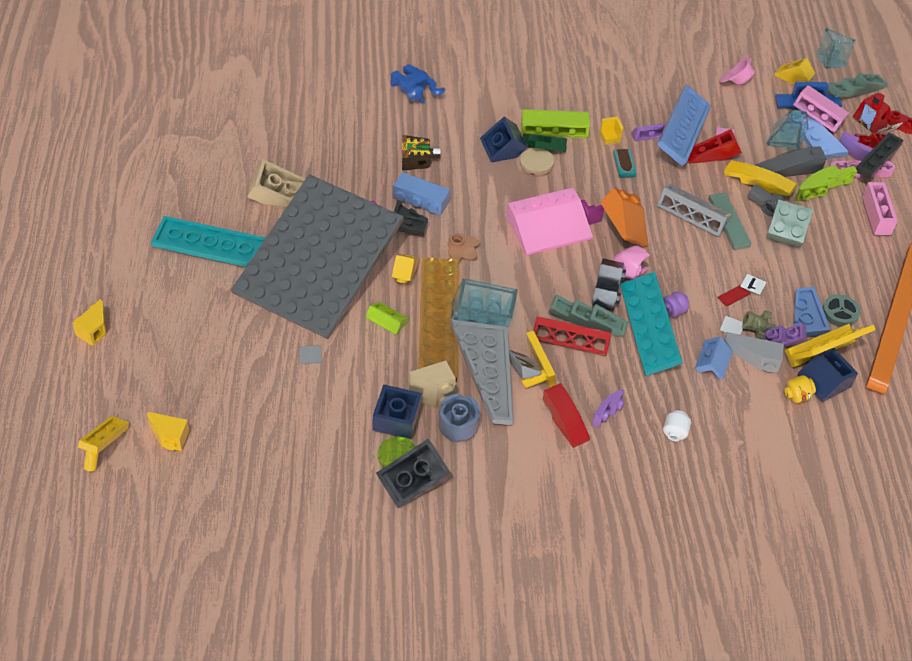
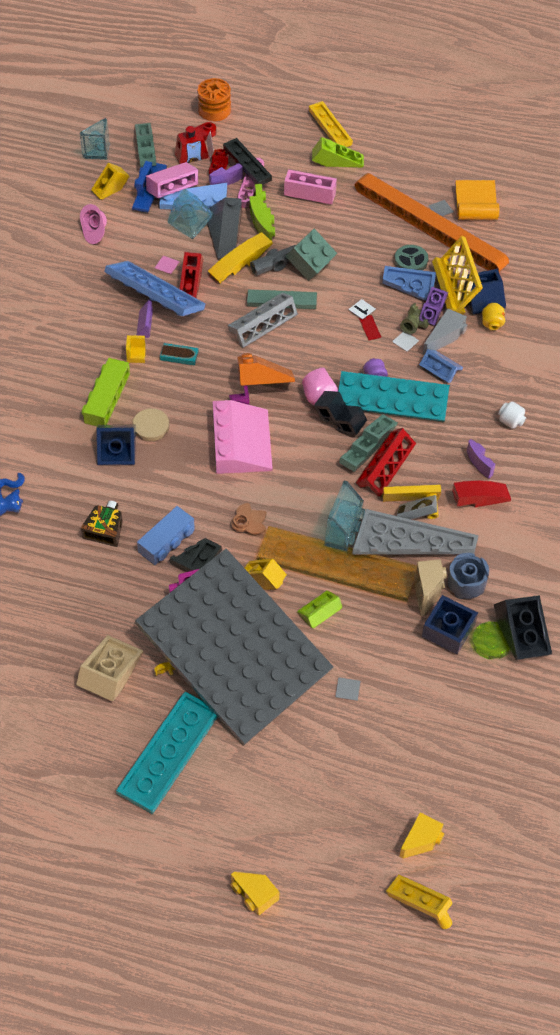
camera: 70 degrees left, 5 degrees up
(546, 142) = (129, 409): dark green slope -> none

